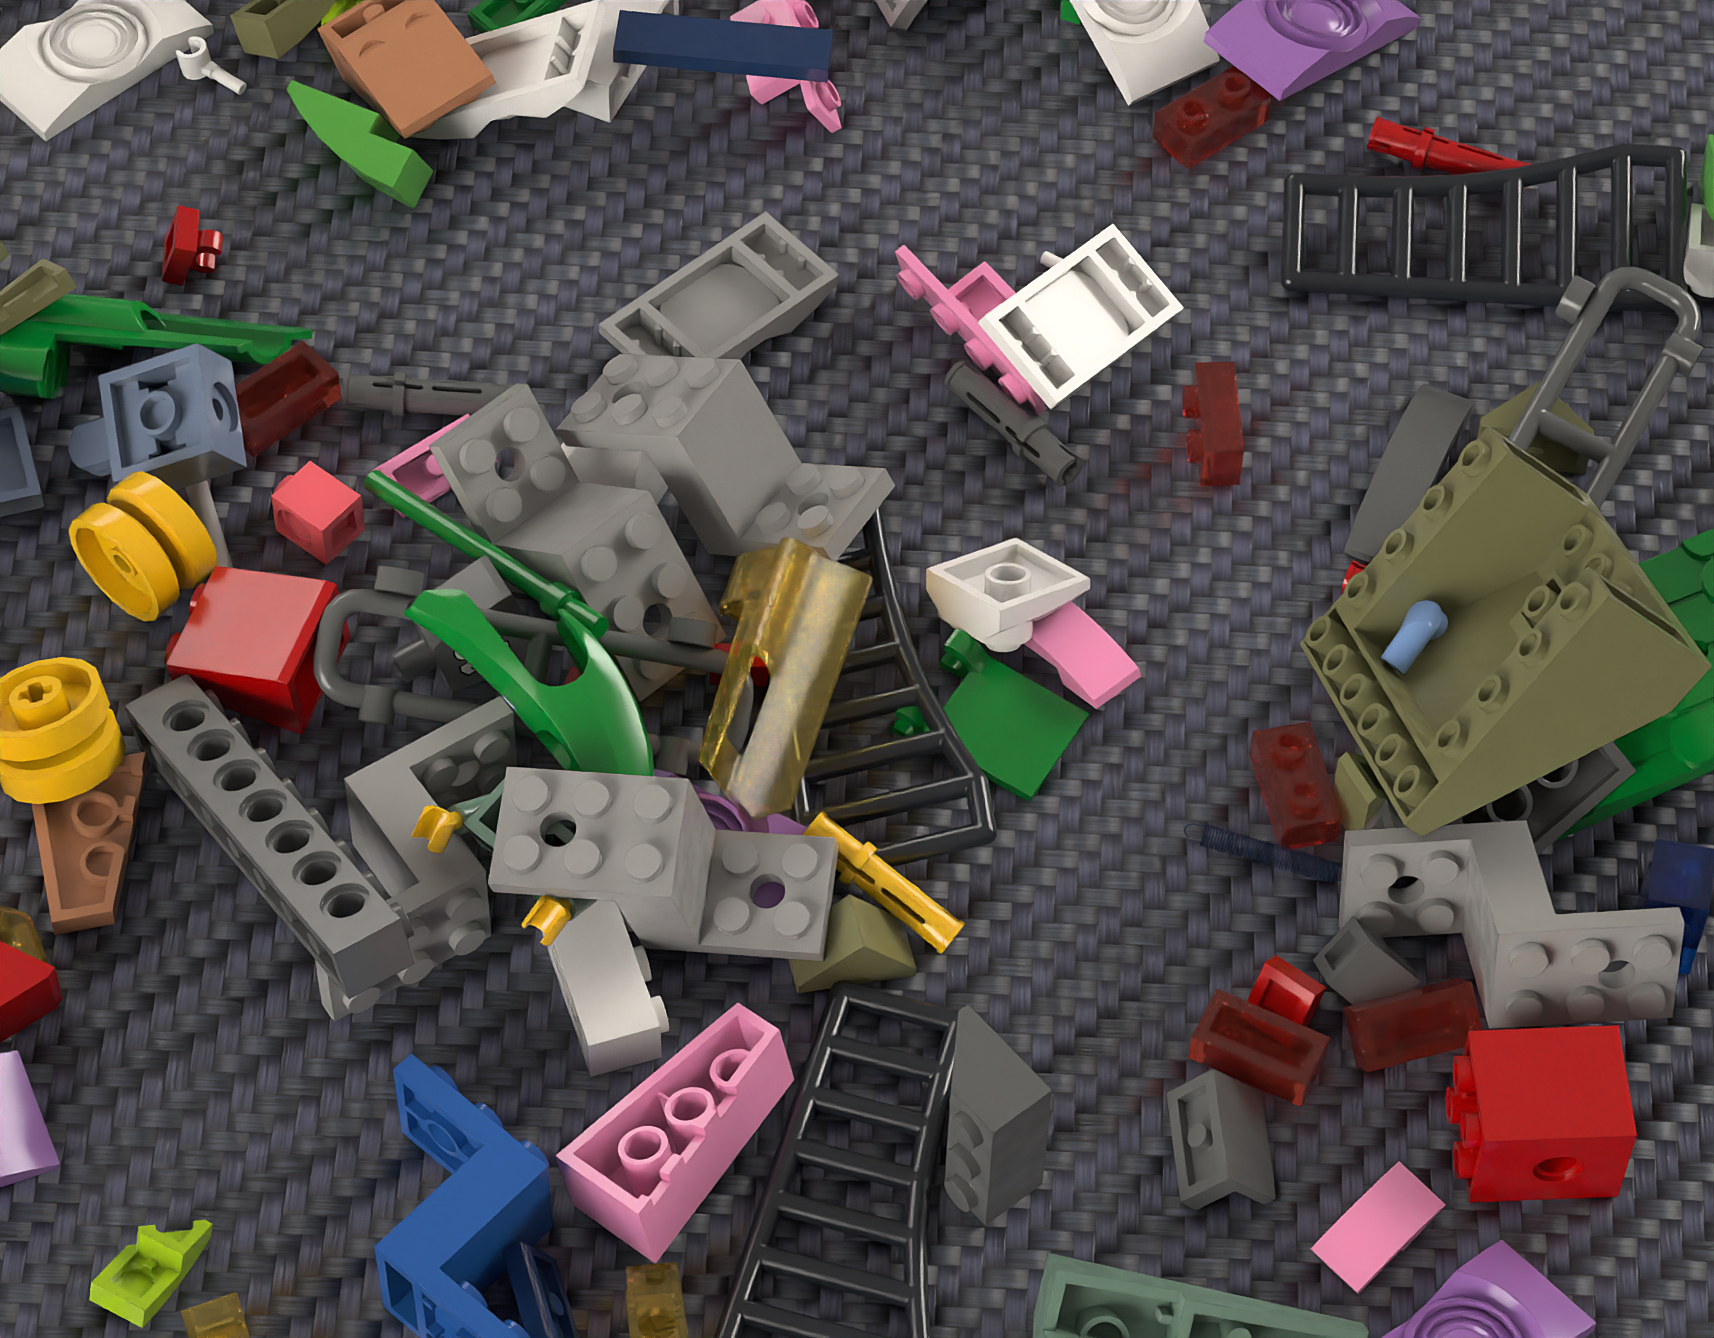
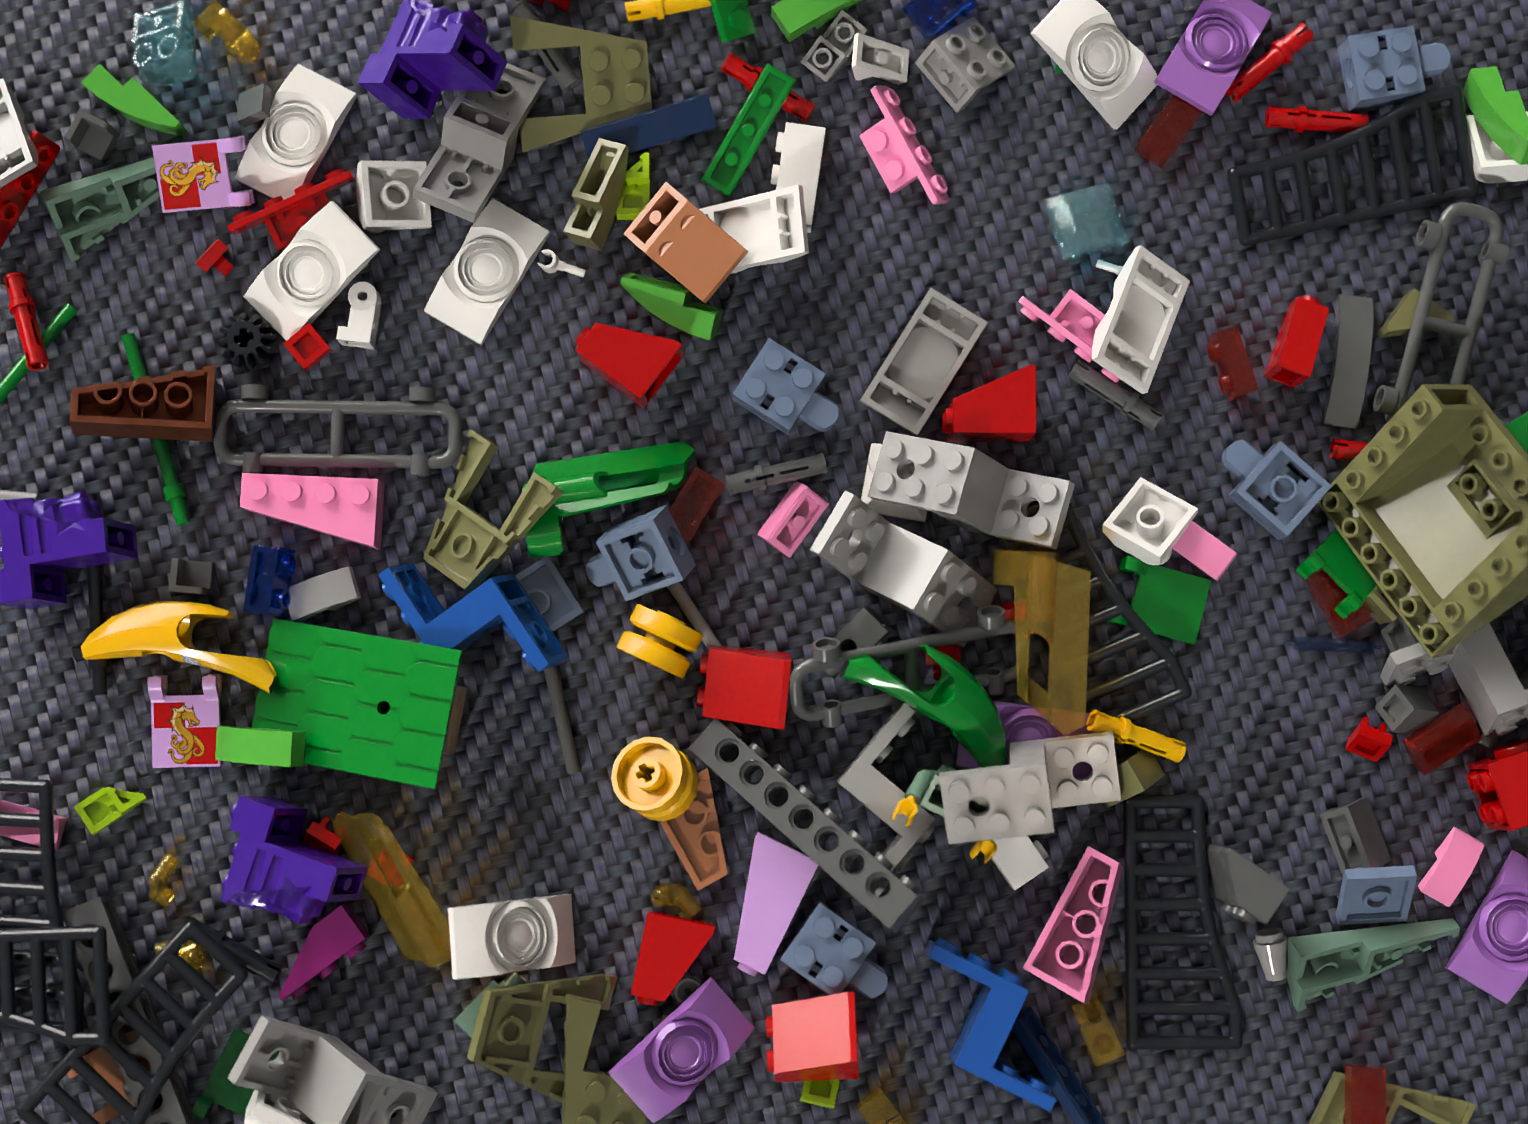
camera: 15 degrees left, 30 degrees up
(156, 1178) = (813, 1039): none -> slope
(167, 972) = (772, 895): none -> lavender slope
(188, 247) = (599, 410): red tile -> none
(239, 1072) = (834, 954): none -> sand blue brick
(262, 183) = (629, 359): none -> red slope
(317, 512) = (742, 576): coral brick -> none
(483, 286) = (787, 389): none -> sand blue brick
(548, 594) = (912, 623): green bar -> none
(723, 46) = (872, 177): dark blue tile -> none
(814, 371) = (995, 411): none -> red slope
(1013, 1279) = (1272, 952): none -> light grey cone
(1043, 198) = (1086, 221): none -> clear light blue slope
(1224, 1221) = (1376, 895): none -> sand blue plate
(1231, 592) = (1274, 486): none -> sand blue brick
(1259, 1047) = (1363, 777): clear red piece -> none
(1309, 720) = (1344, 568): none -> green flag
(1325, 416) = (1297, 342): none -> red slope
(1411, 65) = (1279, 53): none -> red pin
(1422, 623) = (1395, 503): medium blue arm -> none
(1582, 103) = (1388, 67): none -> sand blue brick

